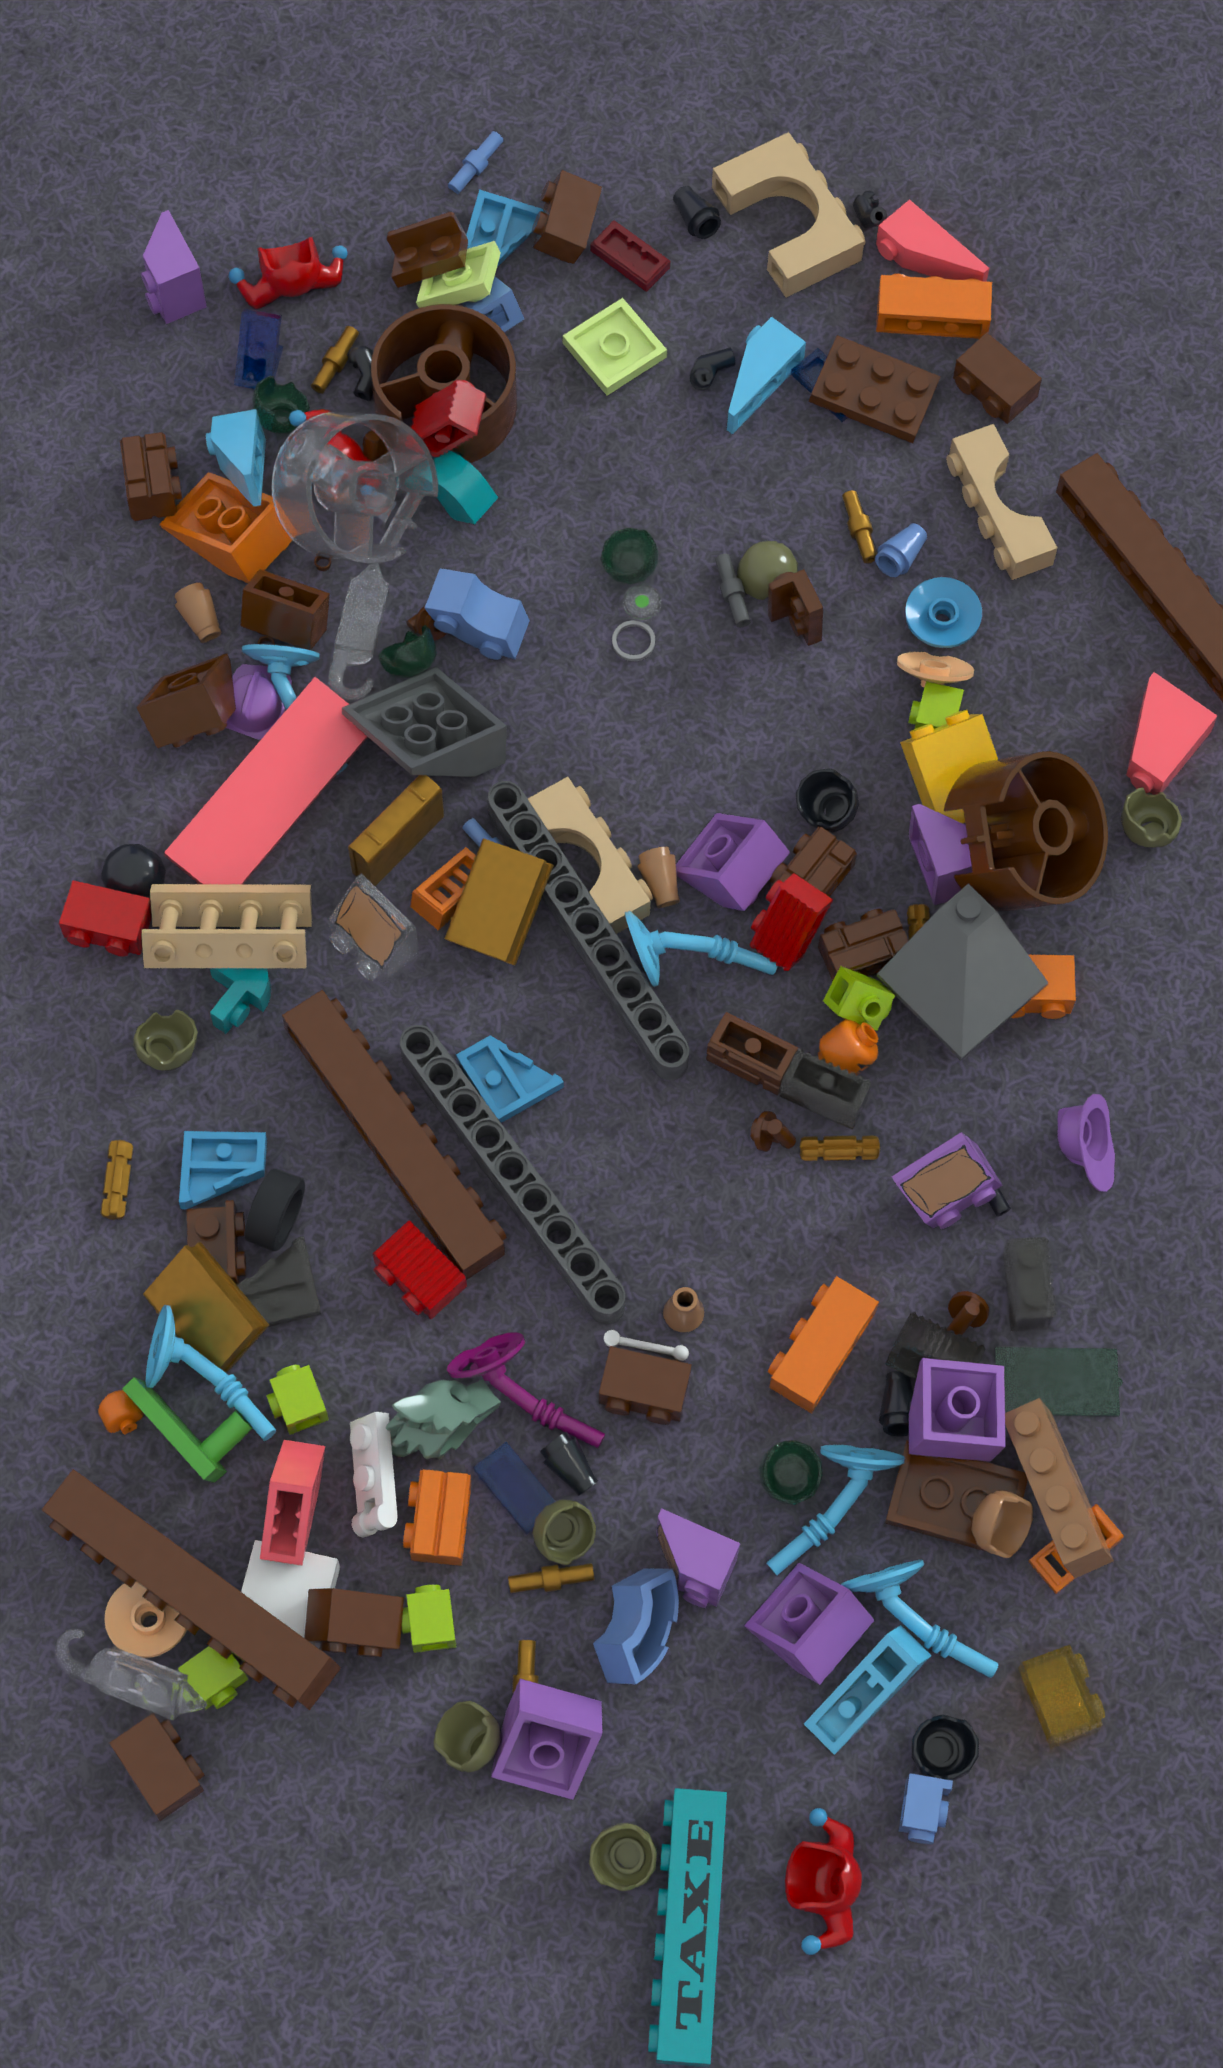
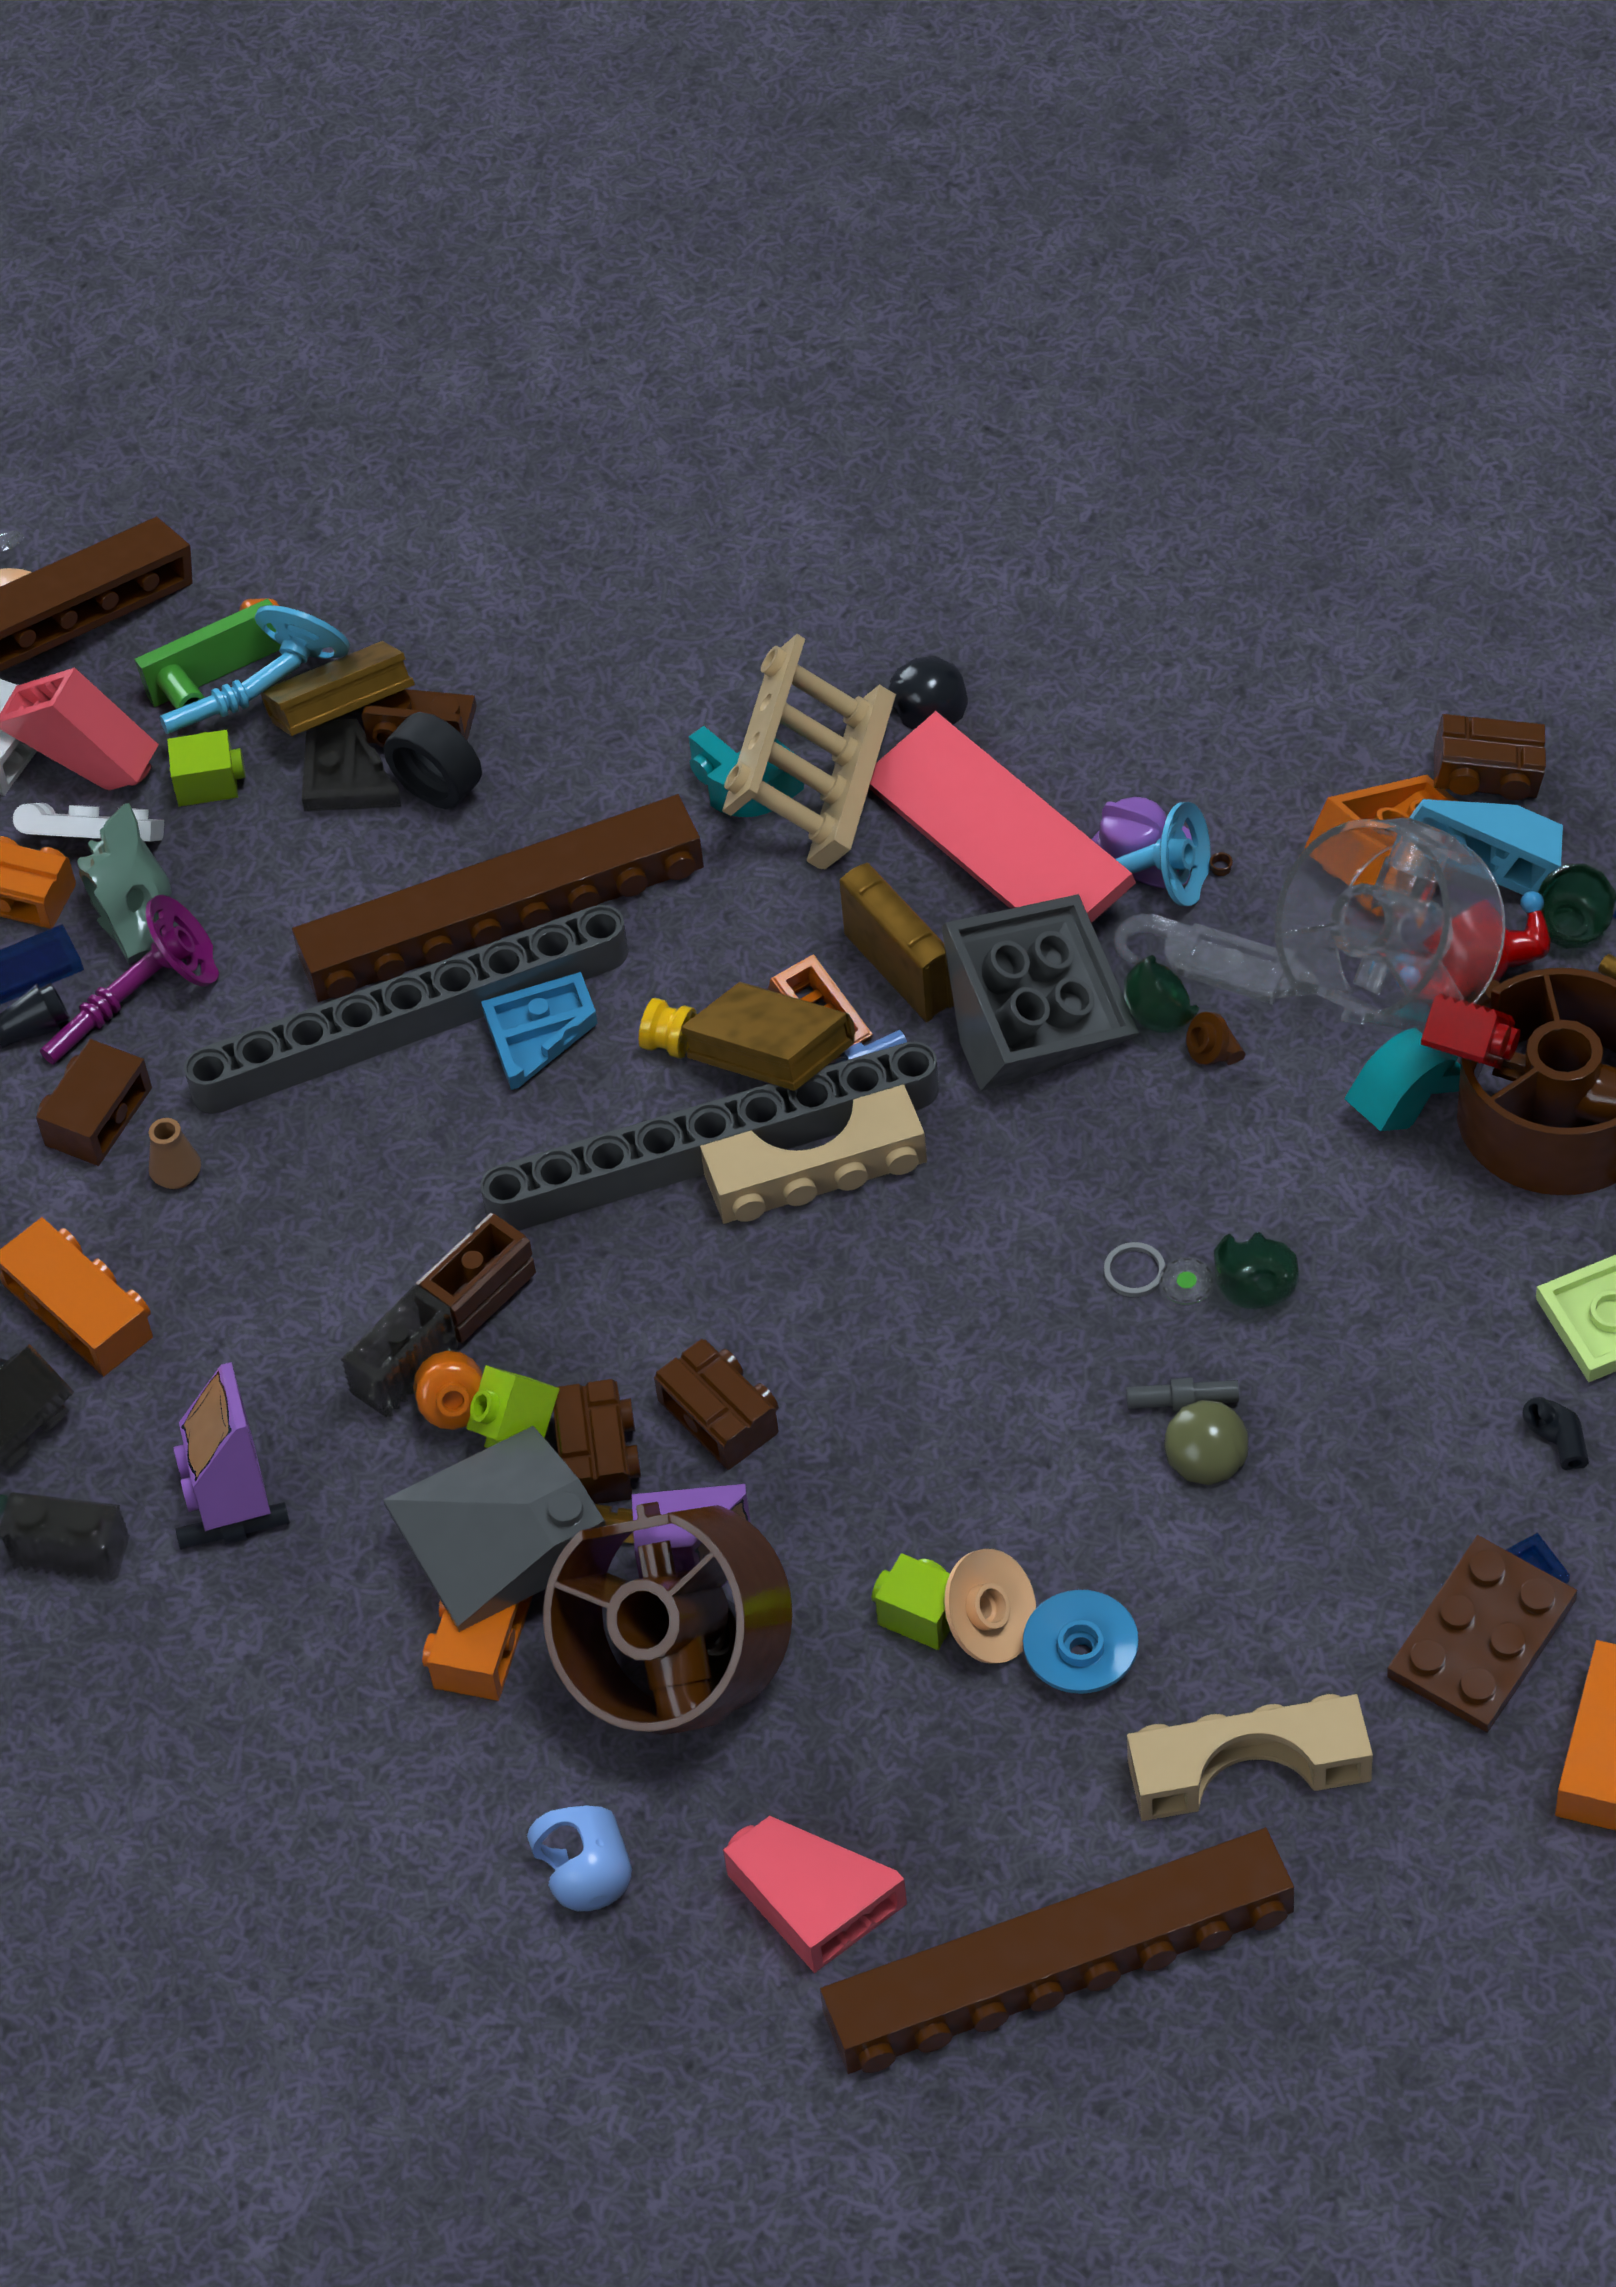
camera: 110 degrees right, 15 degrees down
(105, 918) = (869, 648): red brick -> none
(116, 1179) = (535, 638): pearl gold axle -> none
(175, 1031) = (688, 691): olive hair -> none
(190, 702) = (1138, 754): reddish brown slope -> none
(198, 611) = (1279, 793): medium nougat cone -> none
(219, 1163) = (519, 729): dark azure wing -> none
(284, 609) = (1251, 869): reddish brown brick -> none
(373, 932) = (767, 909): slope -> none
(418, 1270) = (320, 889): red brick -> none
(477, 614) = (1205, 1053): medium blue brick -> none
(493, 982) = (662, 1027): none -> yellow wheel
(613, 1339) = (171, 1092): white hinge -> none
(653, 944) = (655, 1192): medium azure dish -> none
(660, 875) = (769, 1232): medium nougat cone -> none
(732, 860) = (761, 1312): medium lavender slope -> none
(765, 366) = (1535, 1484): medium azure slope -> none
(770, 1129) = (373, 1291): reddish brown plate -> none
(790, 921) = (643, 1344): red brick -> none
(795, 597) = (1117, 1445): reddish brown bracket -> none
(831, 791) = (822, 1425): black hair -> none
(839, 1148) = (328, 1371): pearl gold axle -> none
(859, 526) = (1252, 1571): pearl gold bar -> none
(900, 550) = (1198, 1612): medium blue cone -> none
(945, 753) = (832, 1580): yellow brick -> none
(967, 1310) = (62, 1468): reddish brown plate -> none
(996, 378) = (1466, 1794): reddish brown brick -> none
(1087, 1140) = (224, 1648): medium lavender piece -> none
(1144, 808) = (671, 1821): olive hair -> none
(1195, 857) = (595, 1875): none -> light blue helmet

